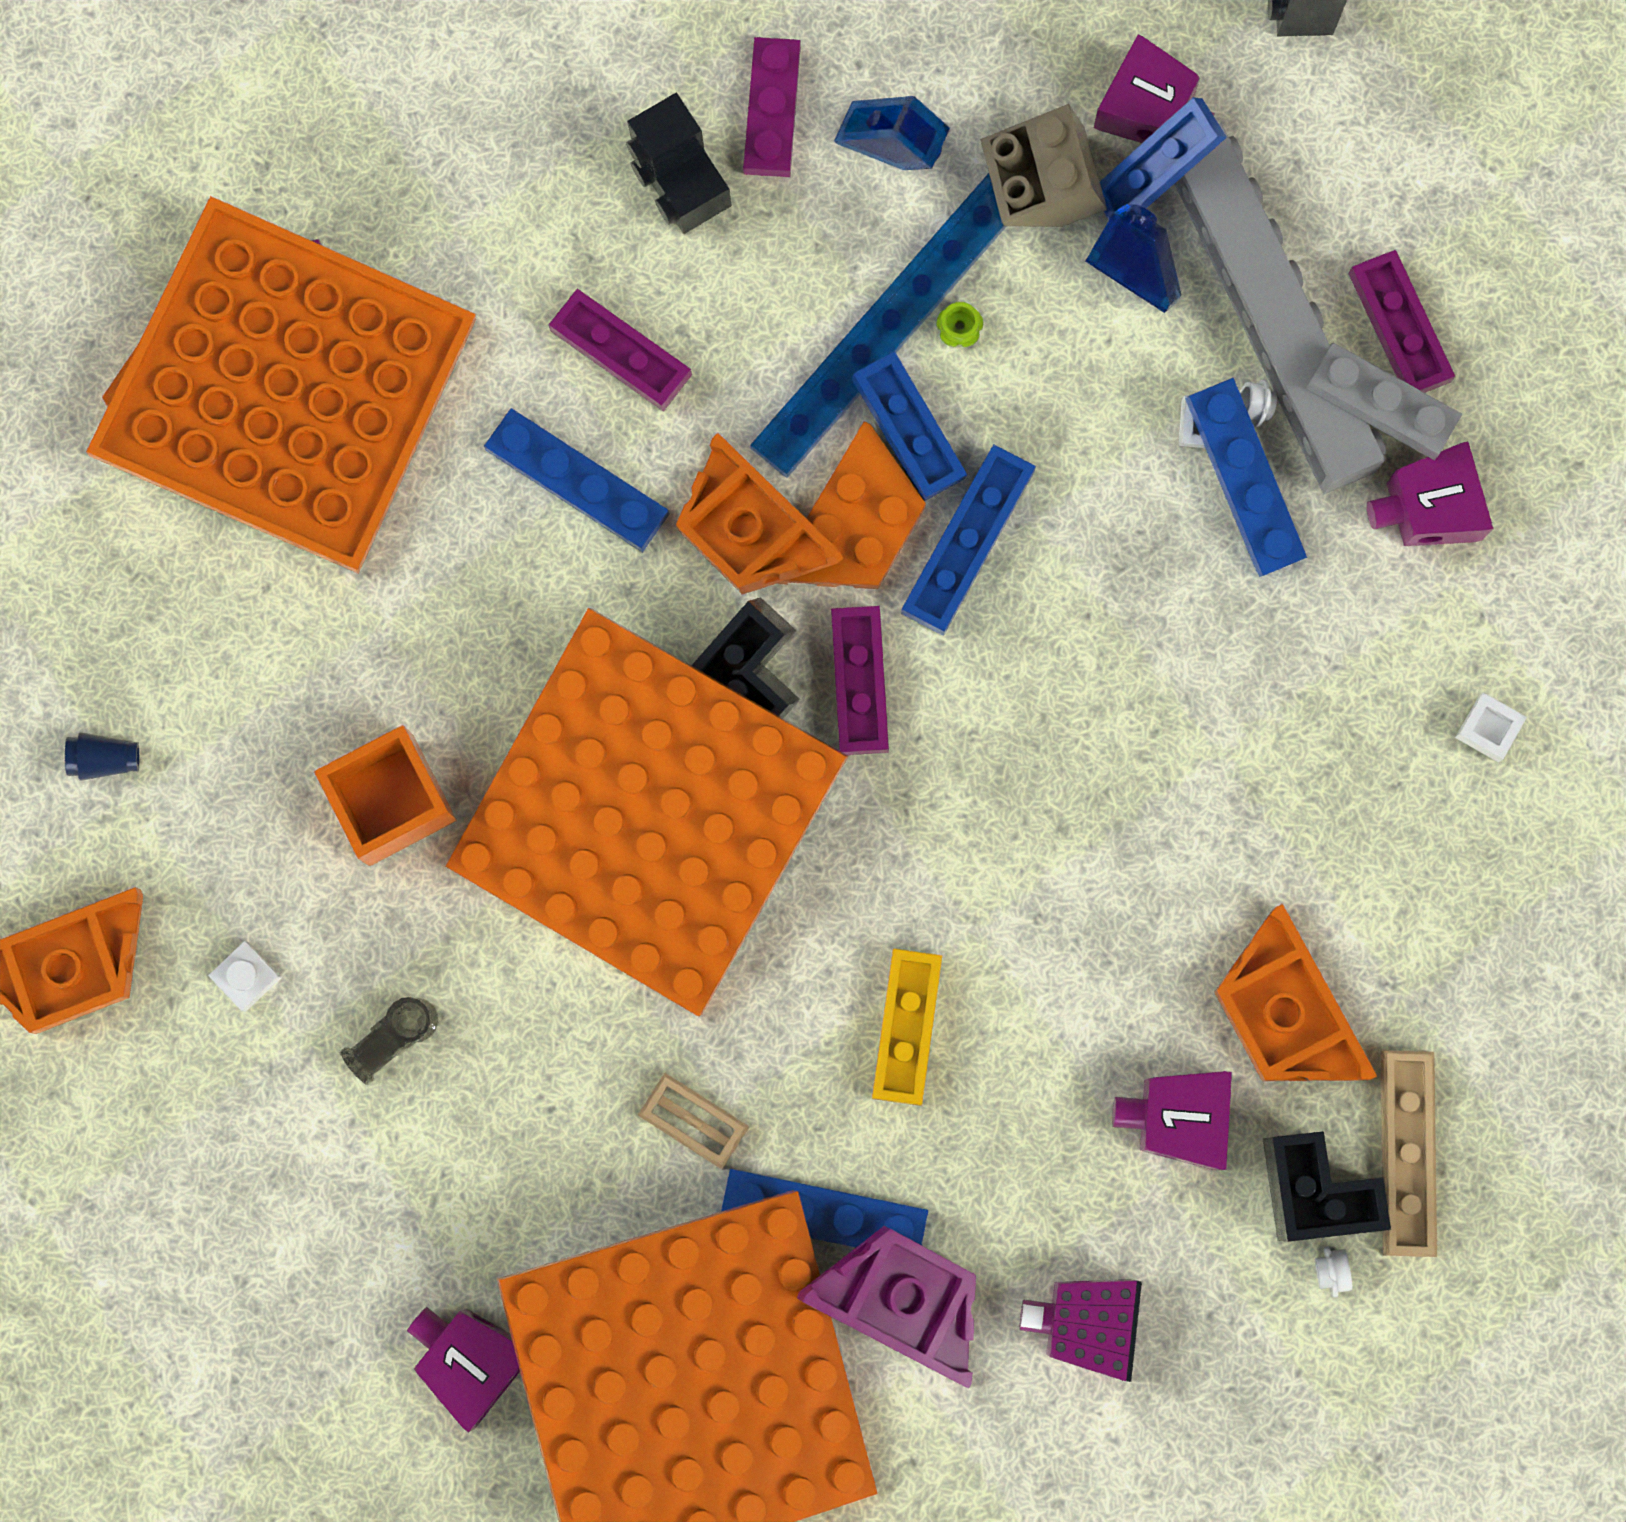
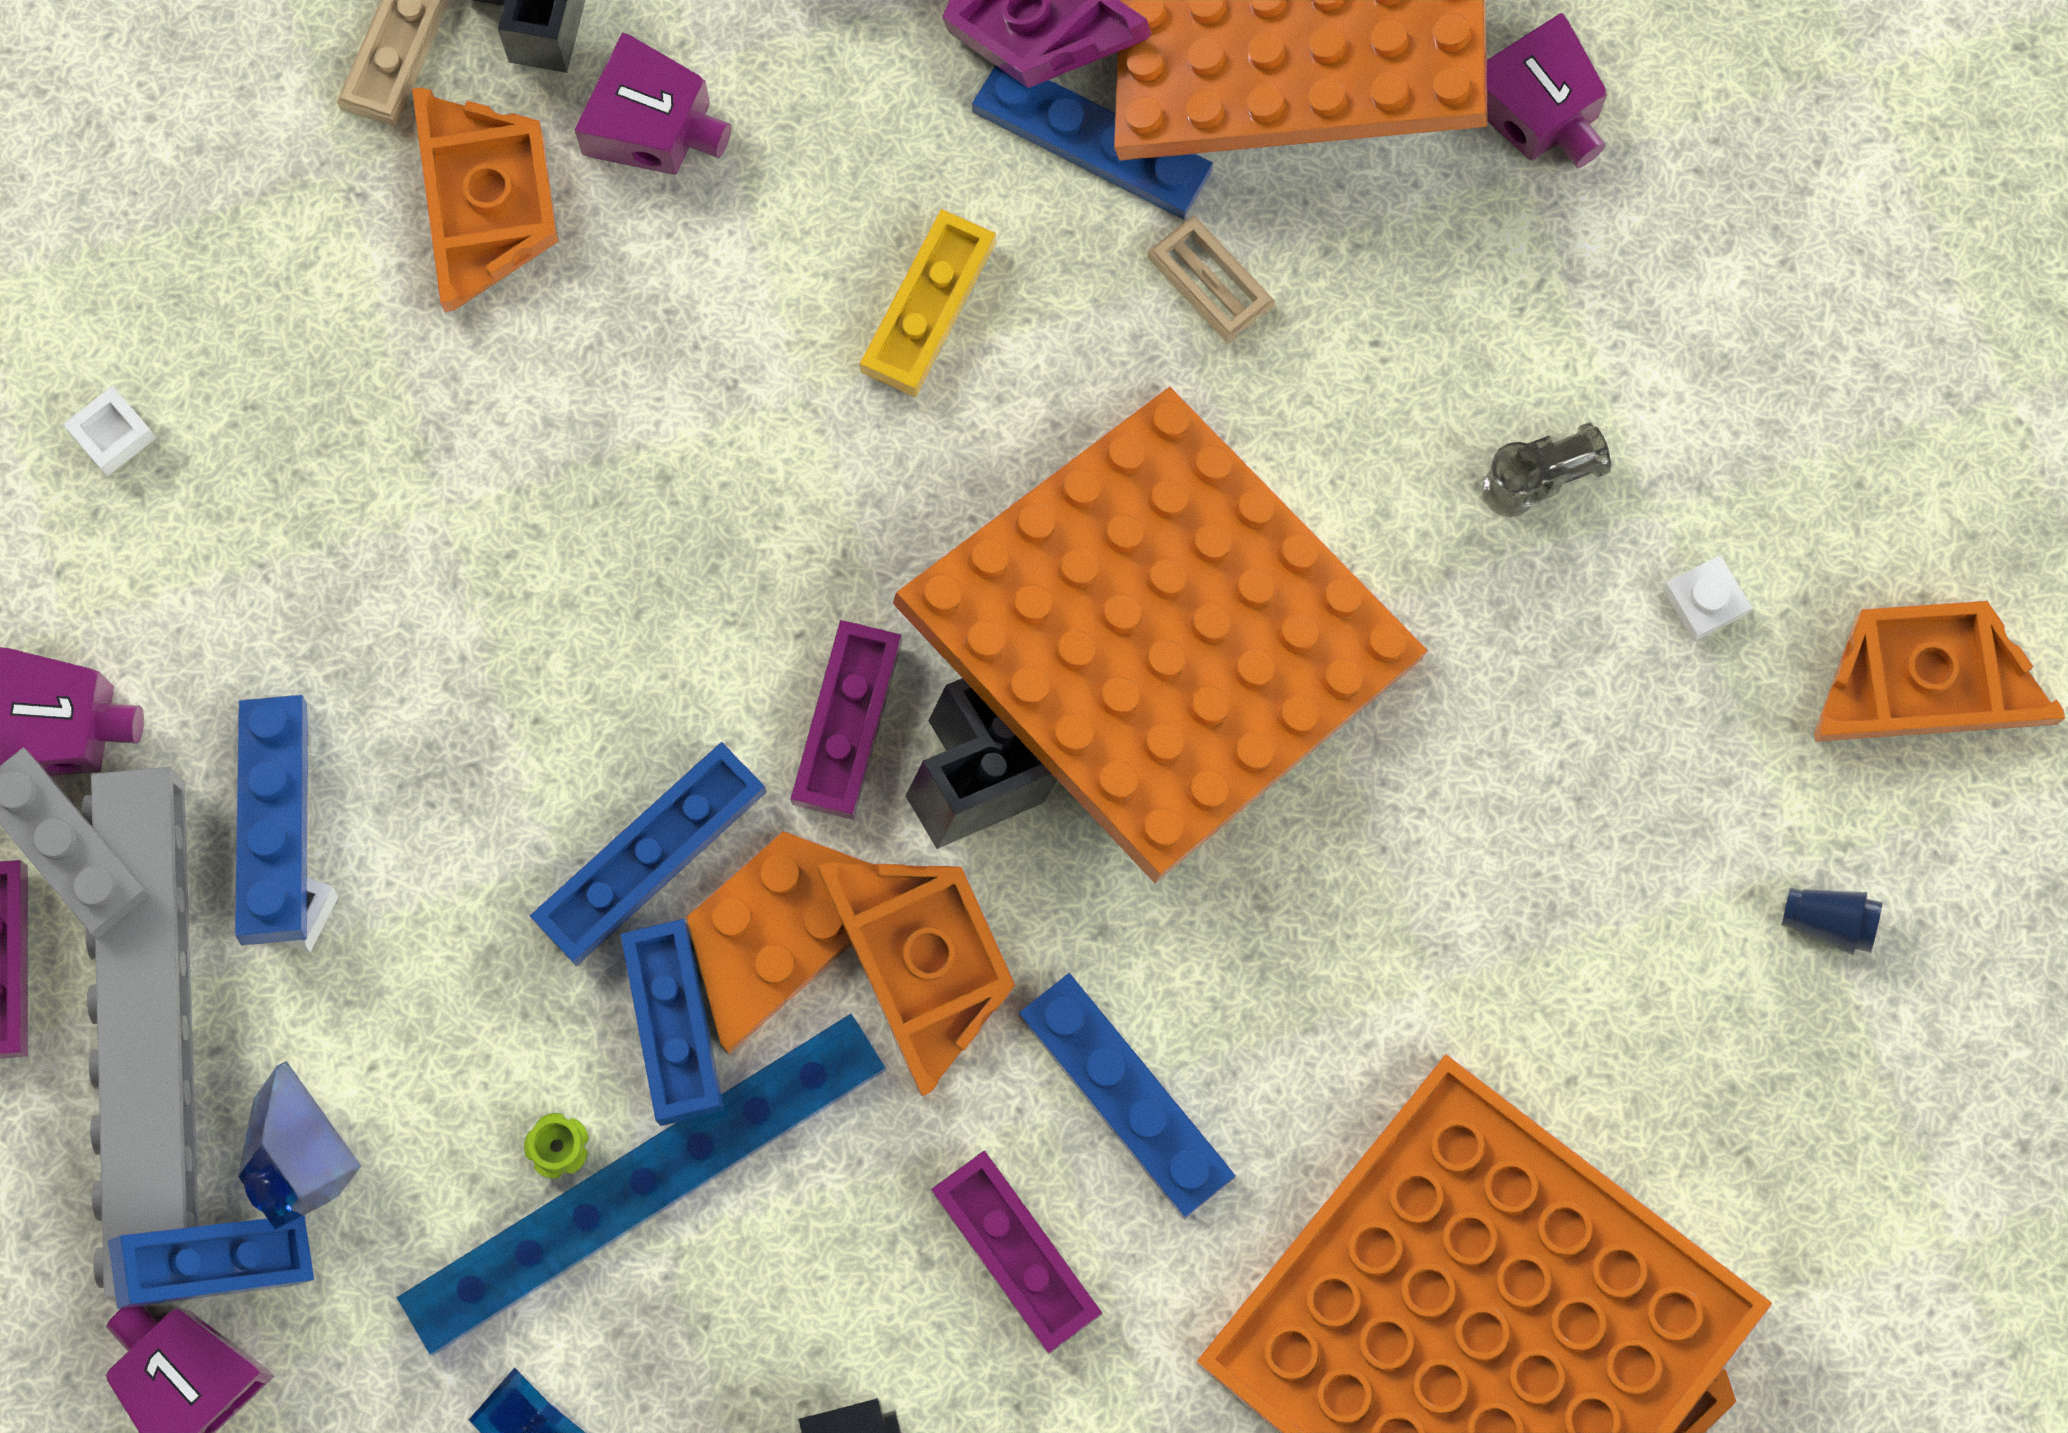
camera: 170 degrees left, 5 degrees down
(385, 796) = (1480, 744): orange piece -> none
(1044, 171) = (368, 1312): dark tan slope -> none
(1259, 401) = (214, 916): white plate -> none

